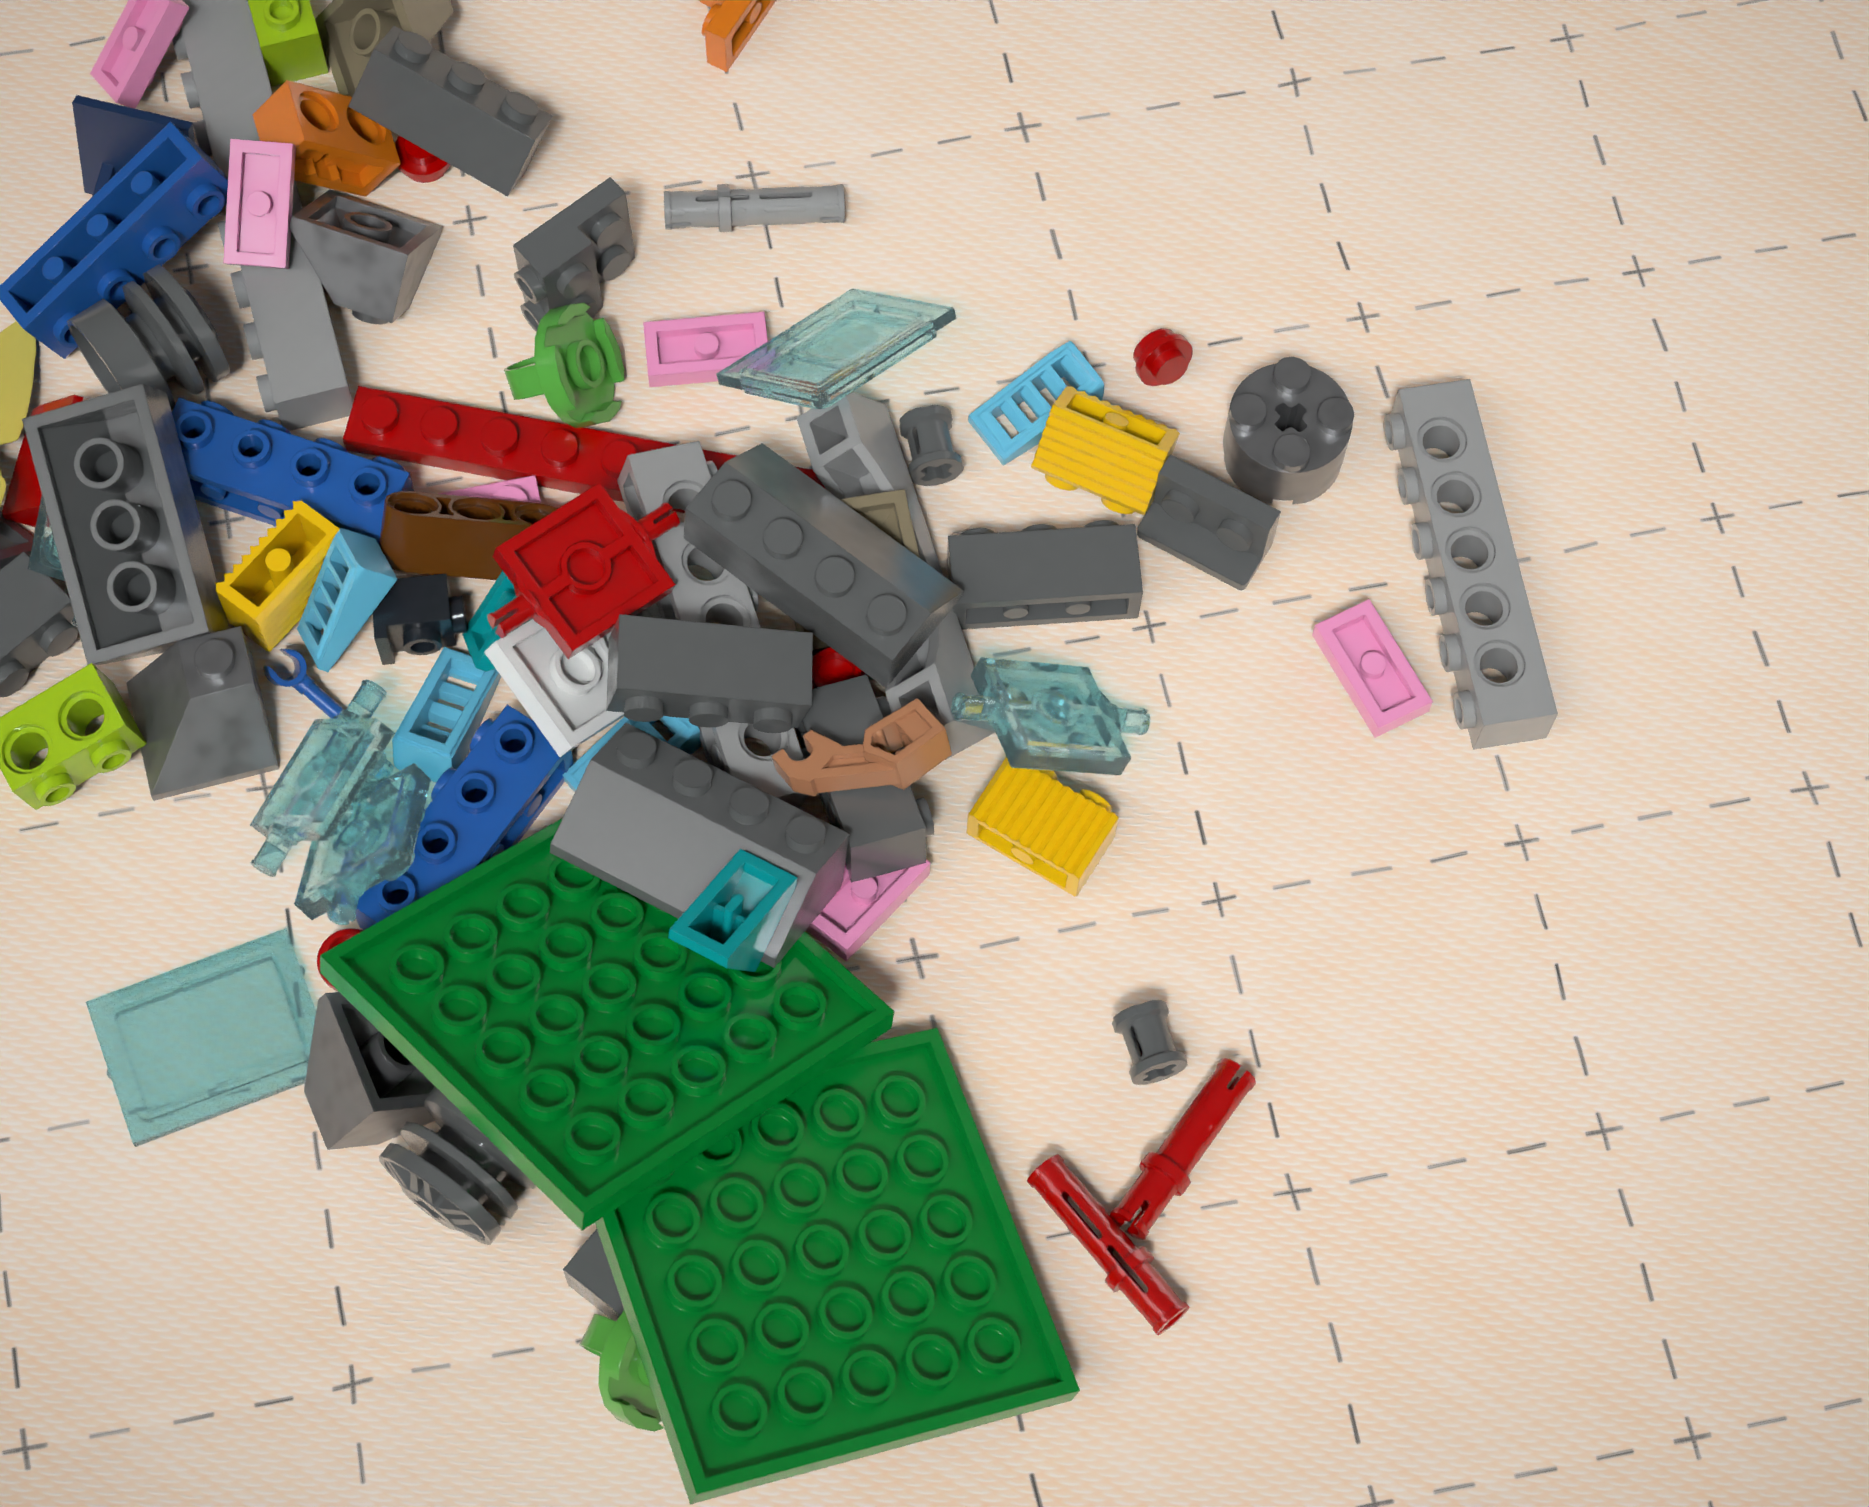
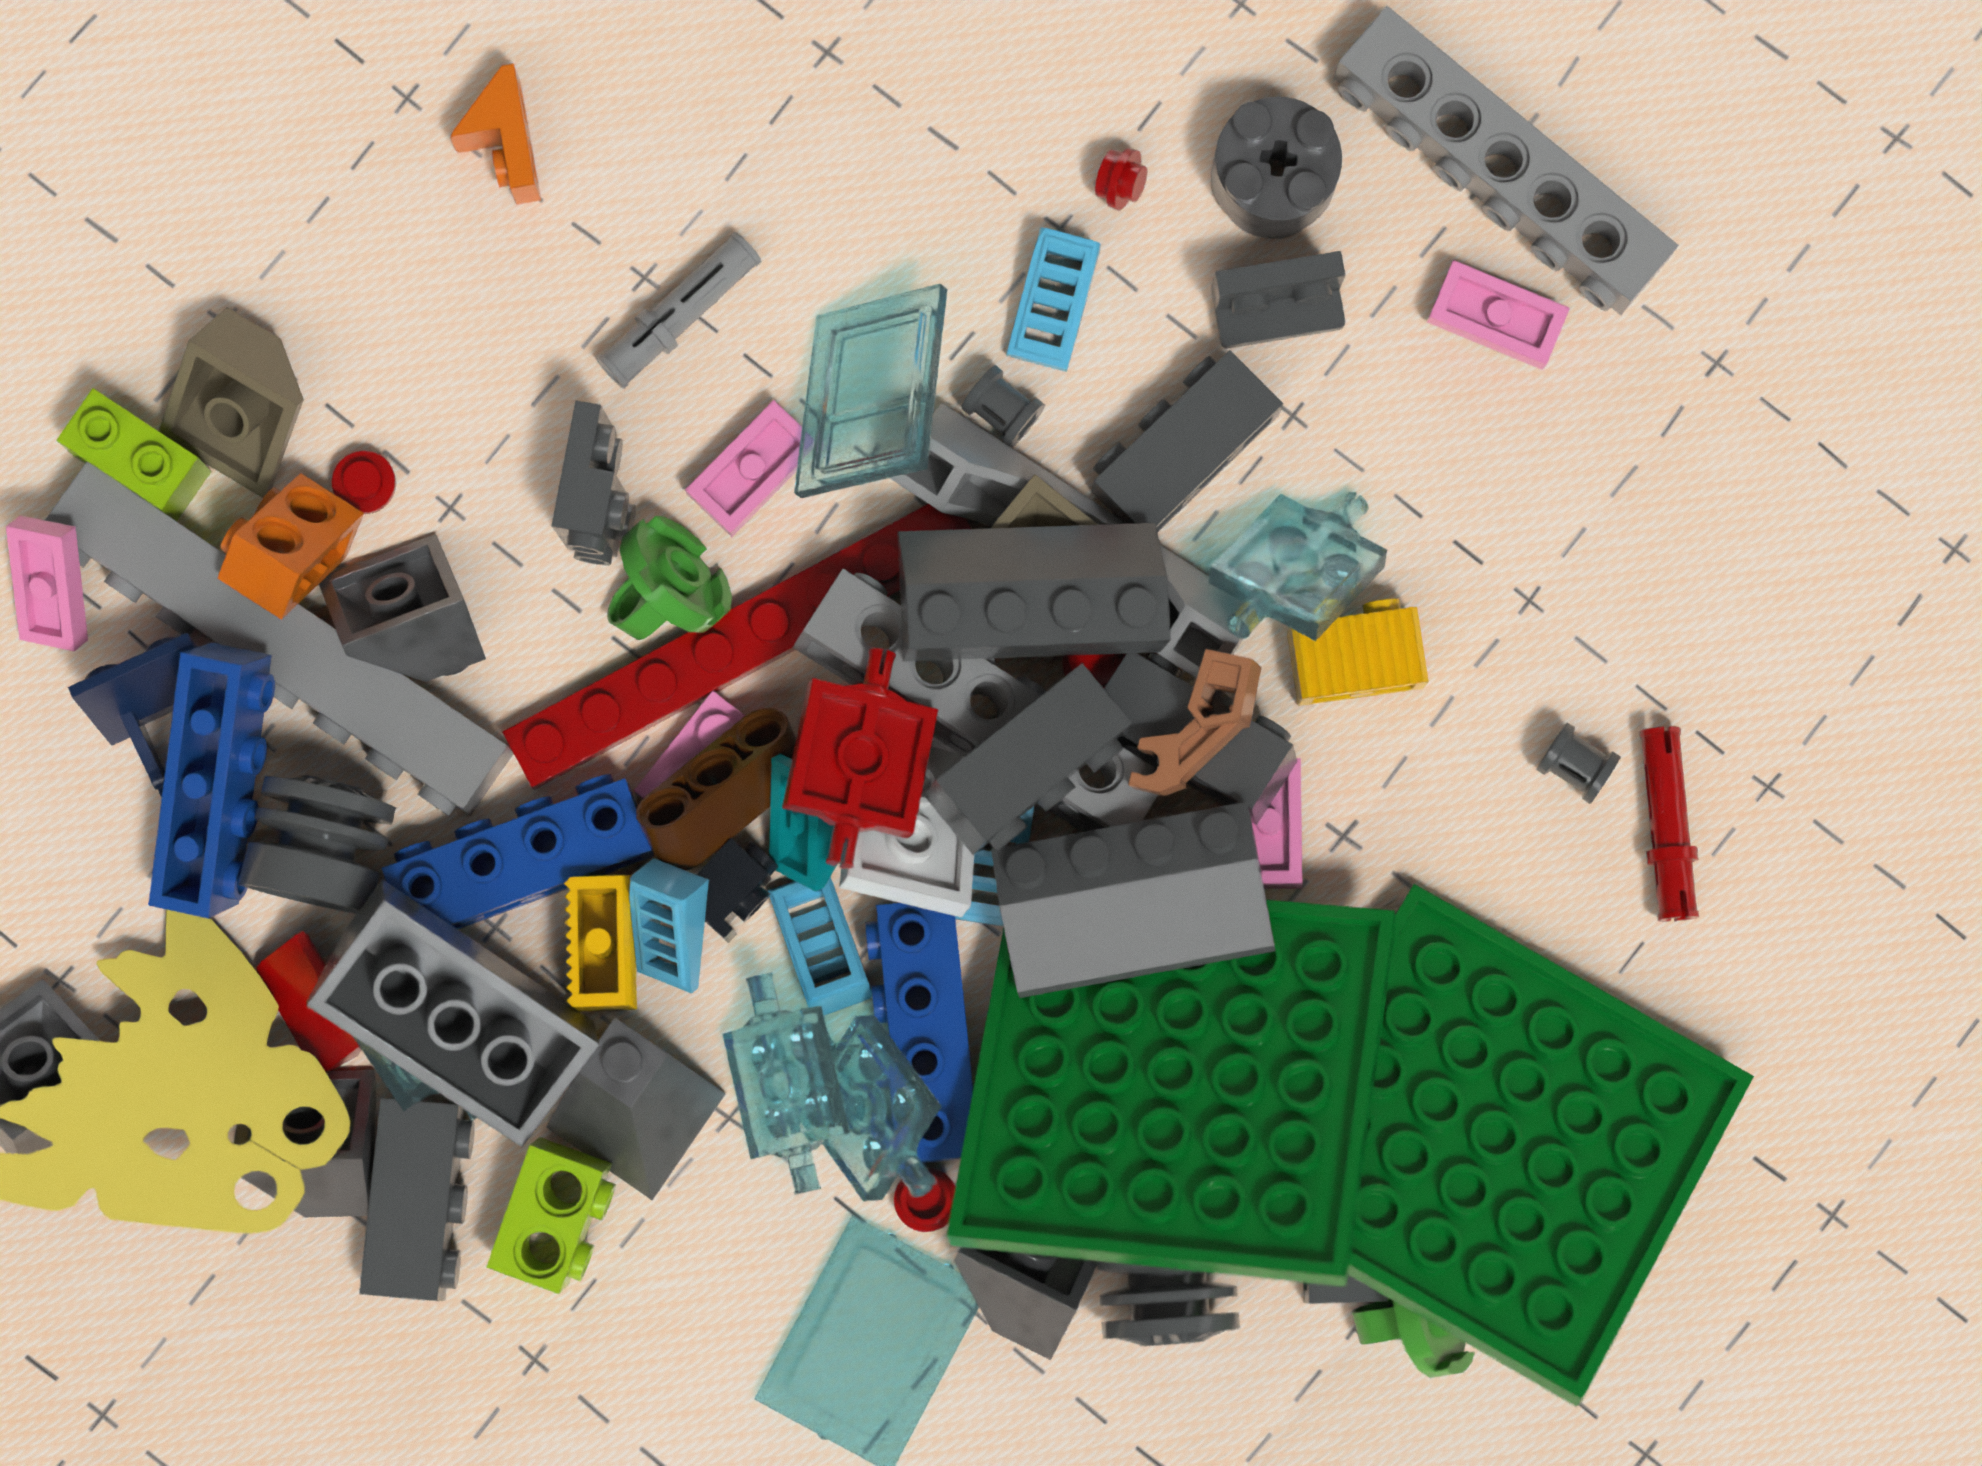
camera: 40 degrees left, 15 degrees up
(259, 204) = (306, 656): bright pink plate -> none
(304, 684) = (680, 1013): blue hand -> none
(450, 110) = (371, 437): dark grey brick -> none
(736, 913) = (1226, 941): teal slope -> none
(1103, 451) = (1150, 302): yellow brick -> none
(1160, 1303) = (1748, 957): red pin -> none

